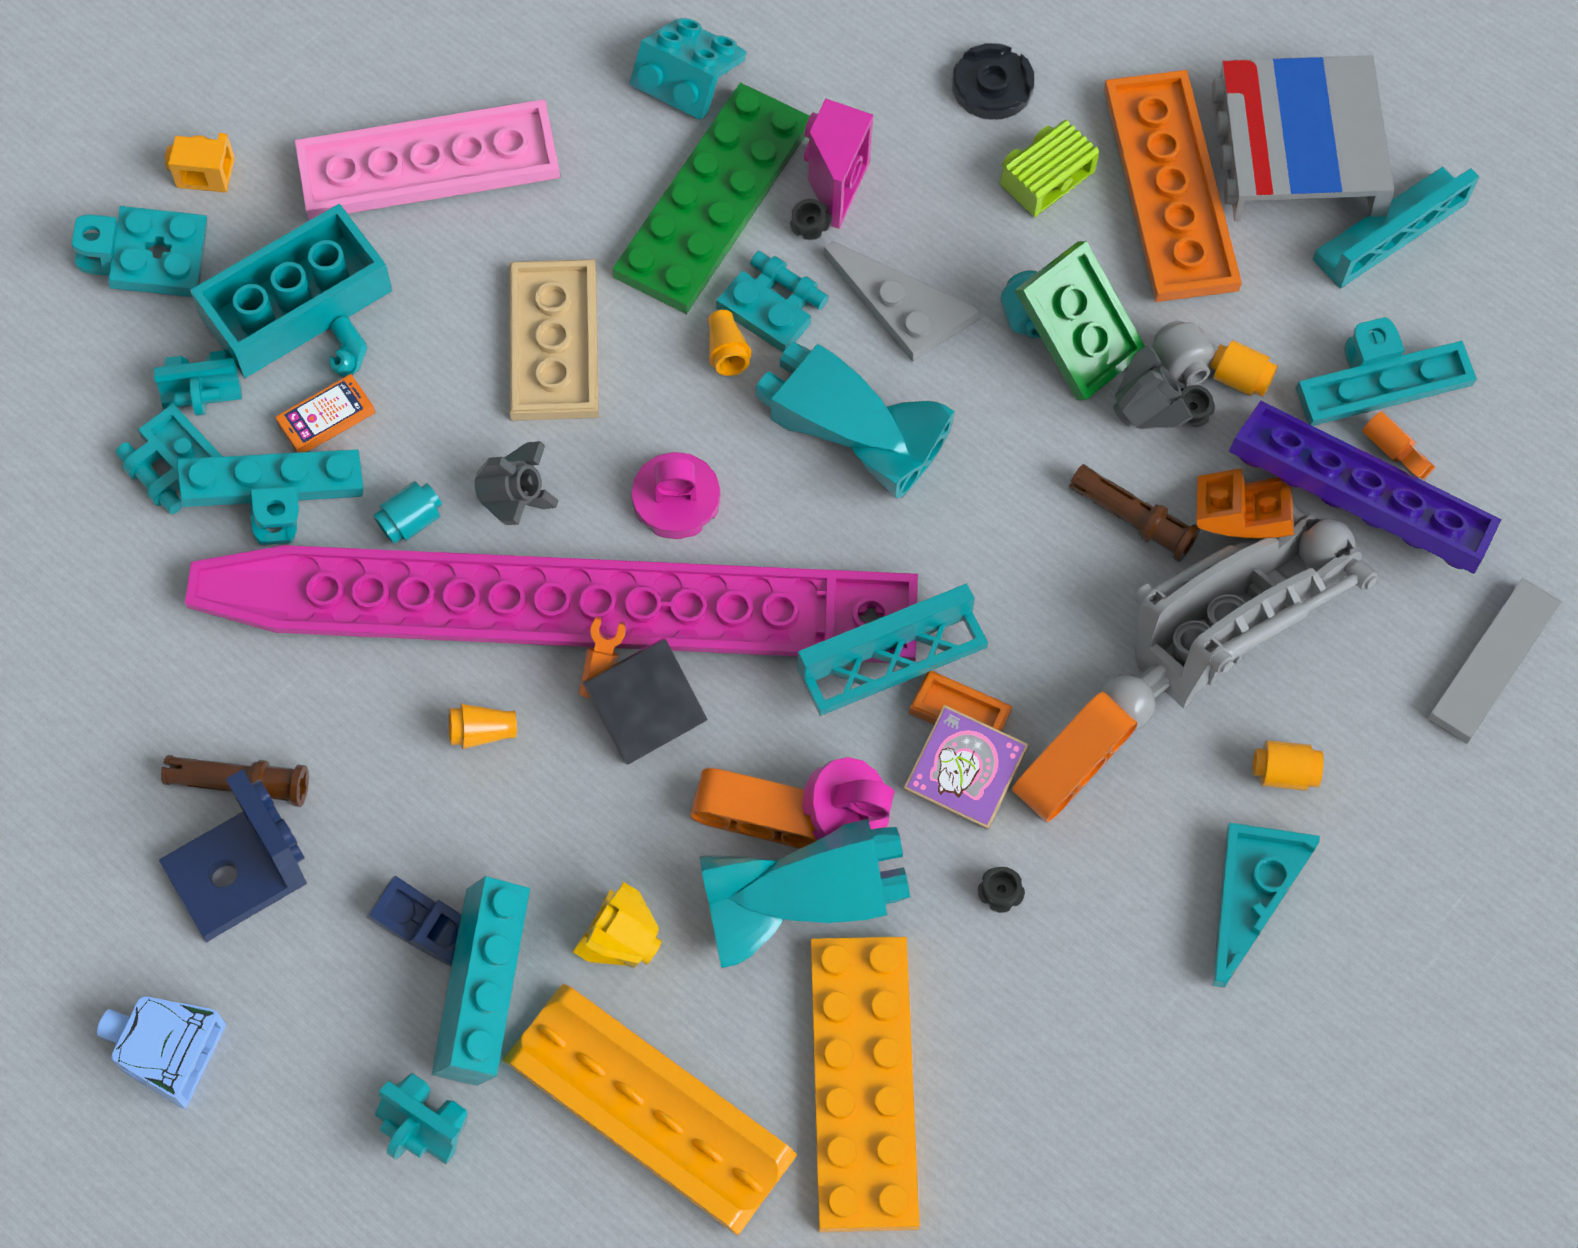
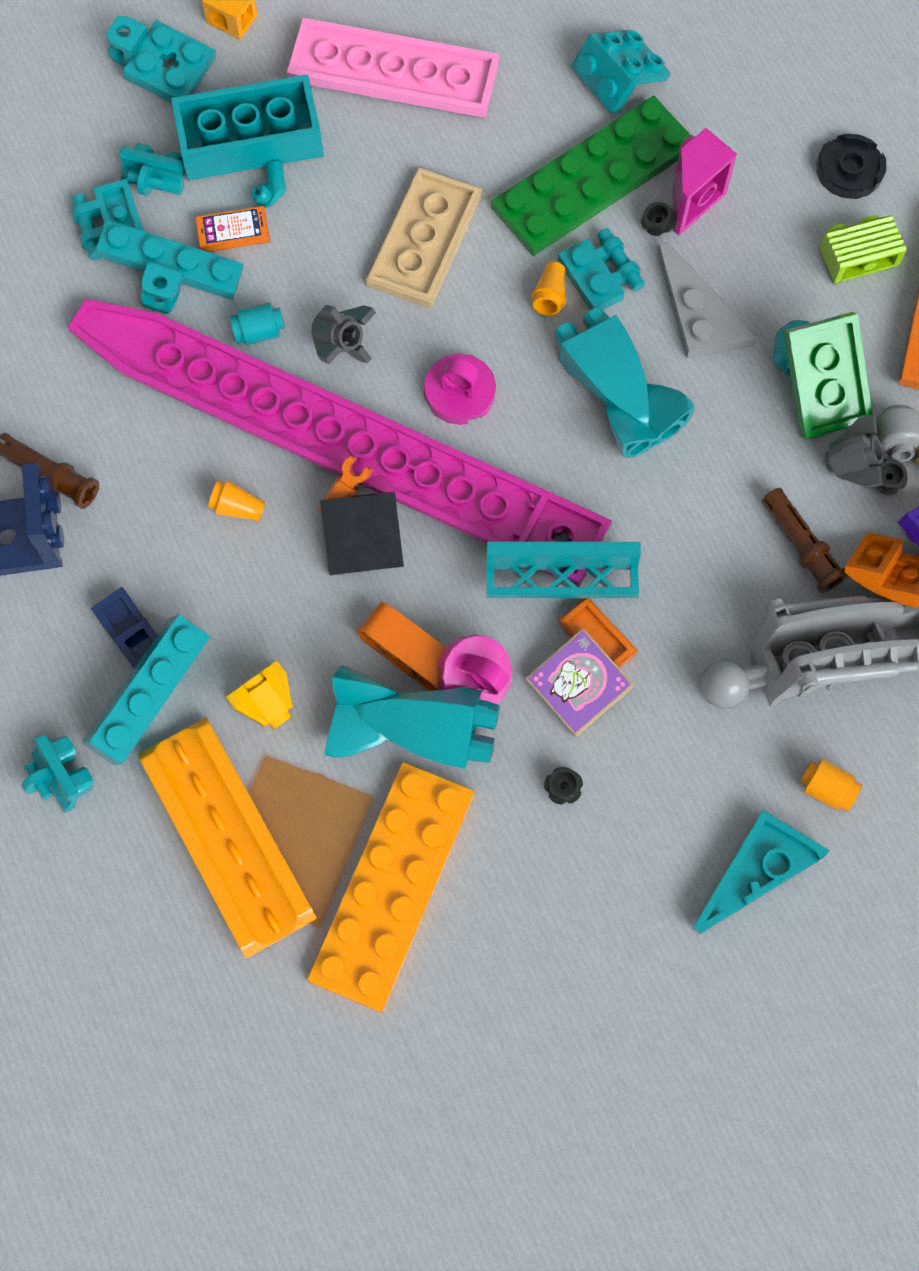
camera: 25 degrees right, 5 degrees up
(740, 1051) = (312, 826): none -> clear orange piece
(1075, 756) = (665, 708): orange beam -> none

